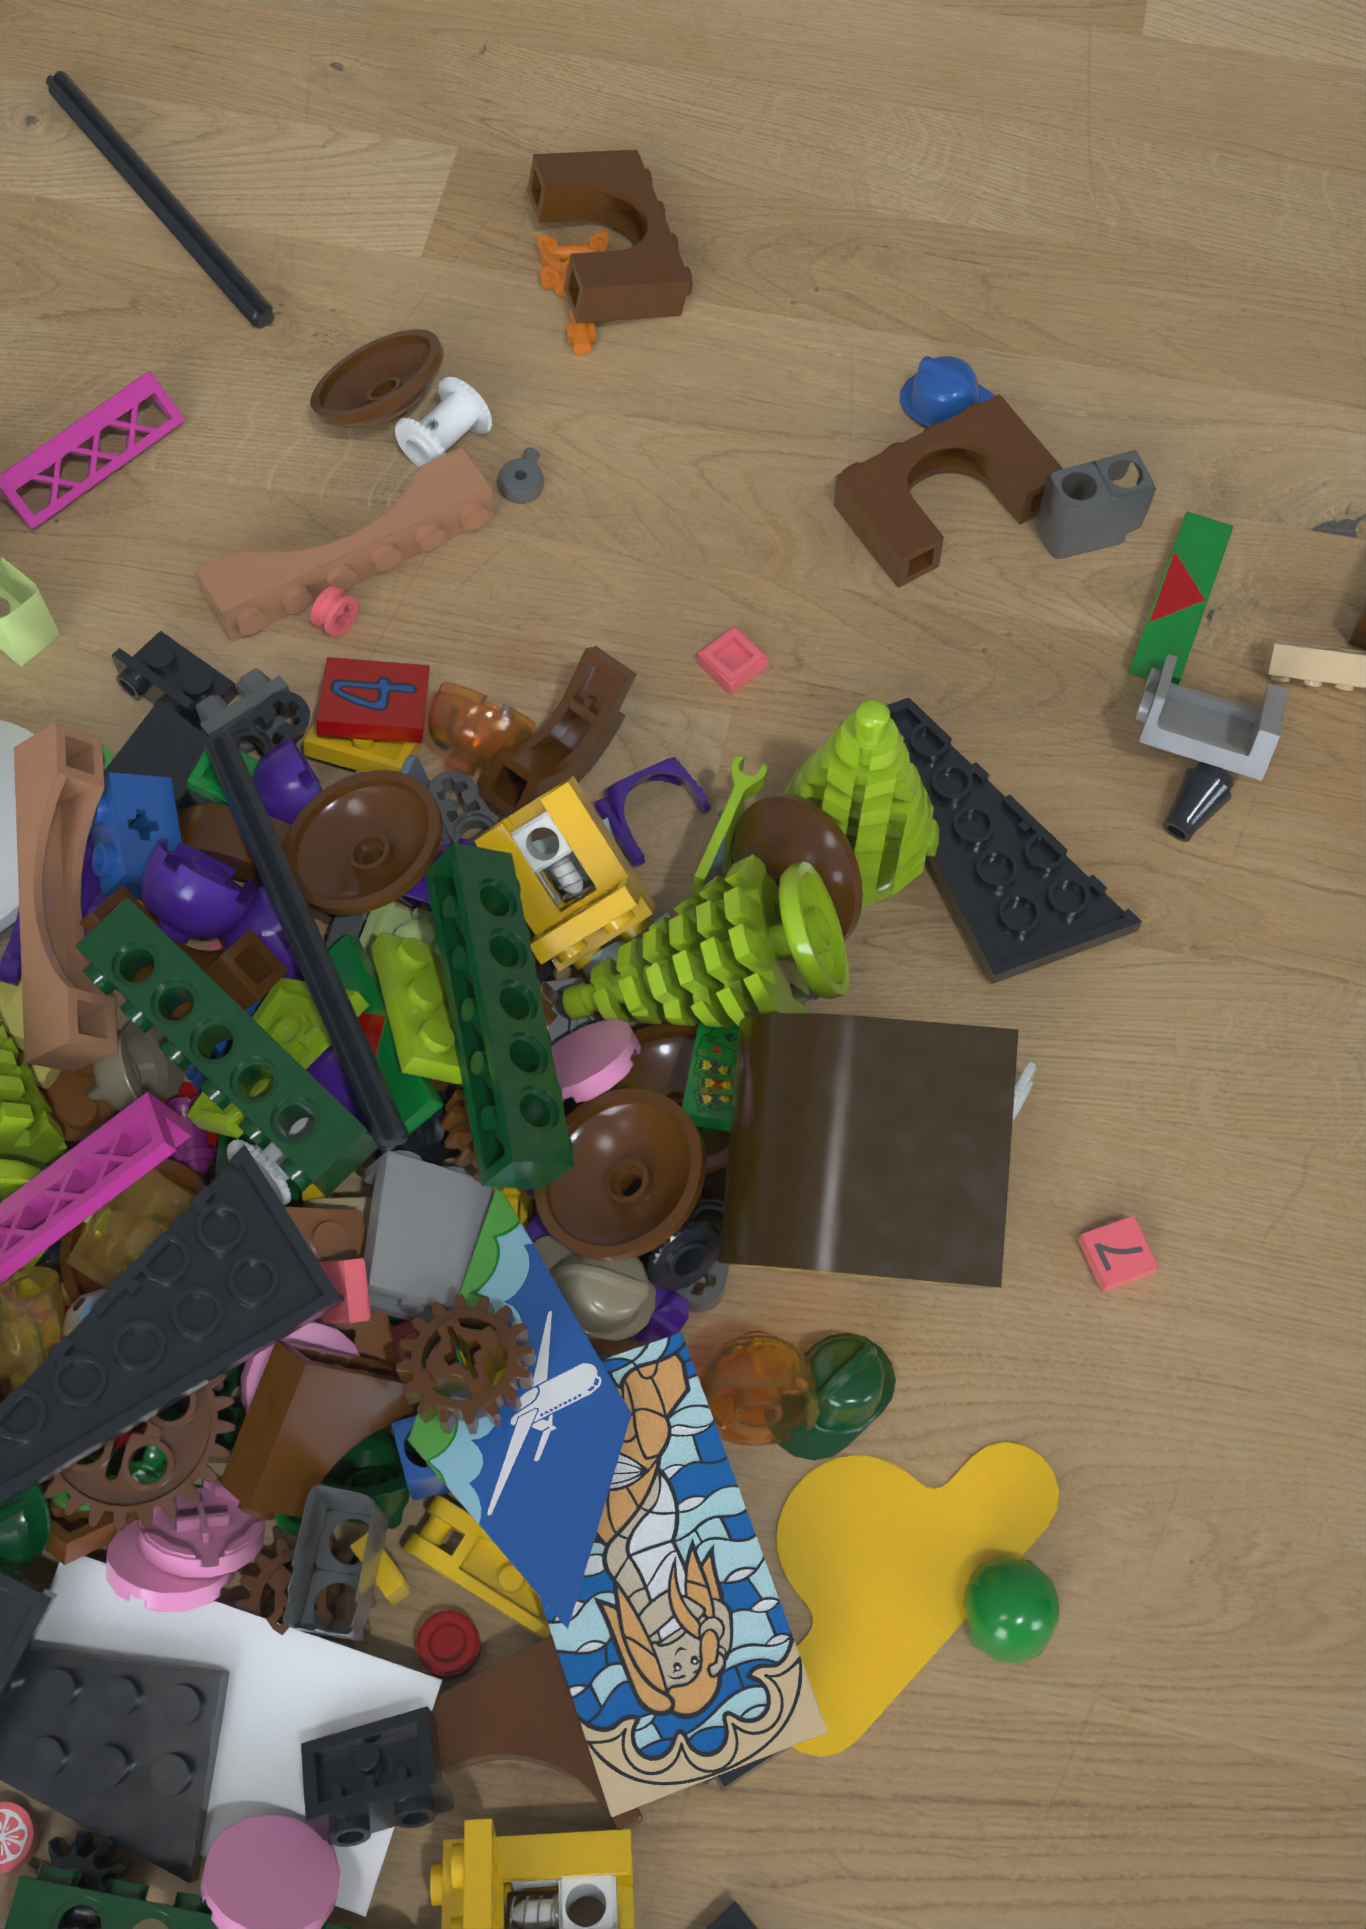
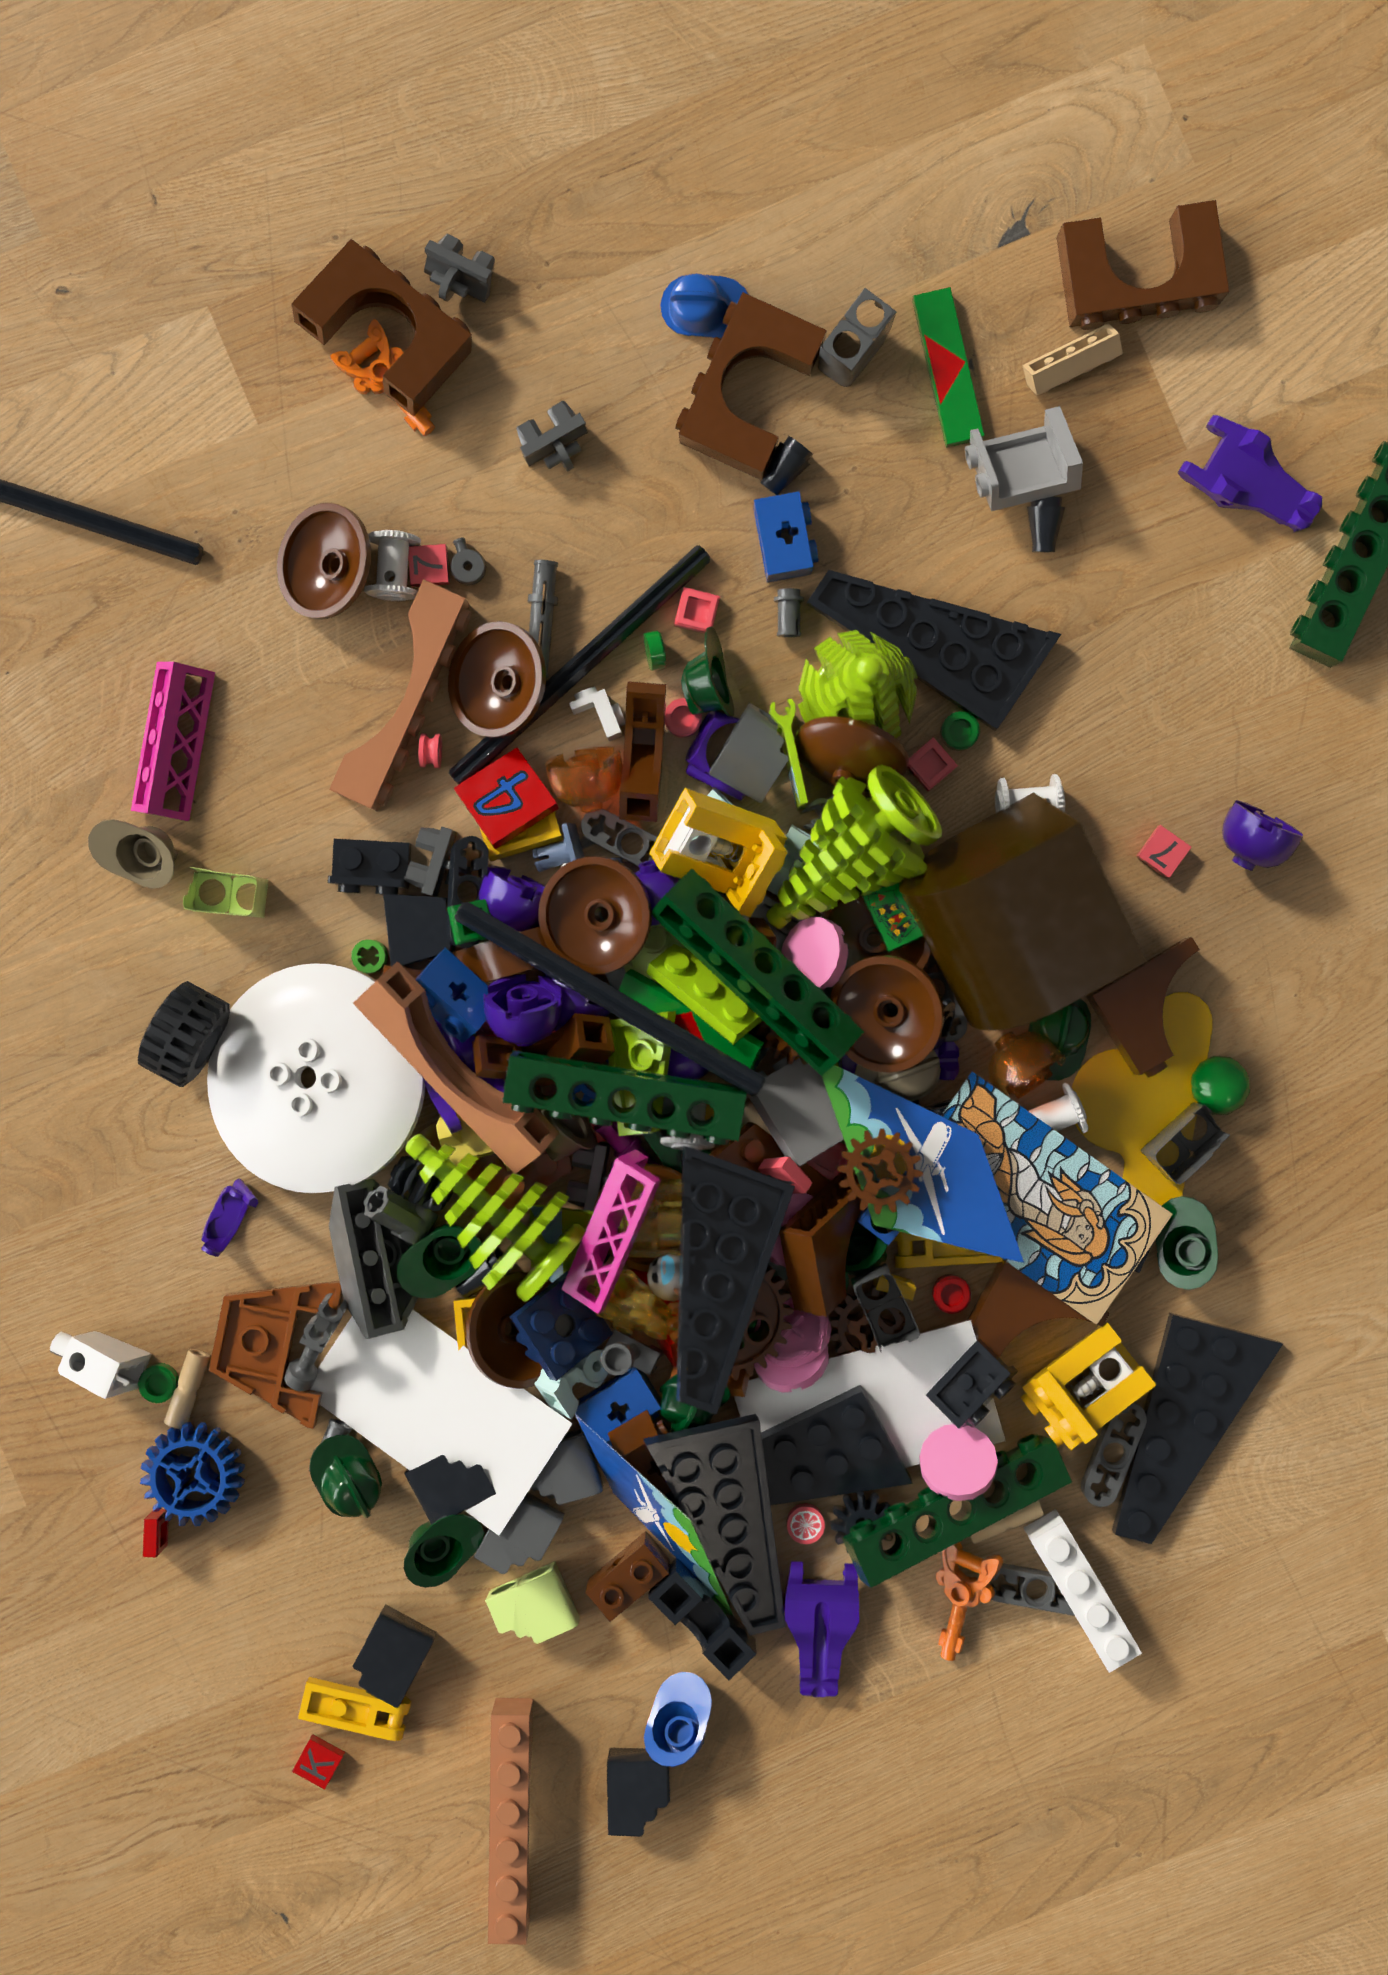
camera: 35 degrees left, 25 degrees up
(461, 580) = (483, 674): none -> reddish brown dish
(487, 451) = (428, 563): none -> coral tile
(551, 674) = (609, 715): none -> white bracket
(568, 632) = (590, 656): none -> black axle
(571, 551) = (545, 574): none -> dark grey pin
(634, 749) = (680, 720): none -> coral tile
(654, 662) = (655, 650): none -> green tile
(677, 816) = (751, 755): none -> dark grey piece
(695, 718) = (706, 681): none -> dark green piece
(702, 419) = (566, 430): none -> dark grey hips
(720, 236) = (456, 272): none -> dark grey hips
(770, 1487) = (1062, 1111): none -> white hose
(822, 1795) = (1187, 1244): none -> dark green piece
(838, 706) = (789, 612): none -> dark grey pin
(881, 640) = (773, 516): none -> blue brick
(887, 972) = (931, 764): none -> coral tile
(910, 1669) = (1202, 1148): none -> dark grey piece
(935, 579) = (787, 464): none -> black cone
(948, 958) = (960, 731): none -> green tile
(956, 1410) = (1134, 1008): none -> reddish brown arch
(1256, 1304) = (1258, 837): none -> dark purple cylinder

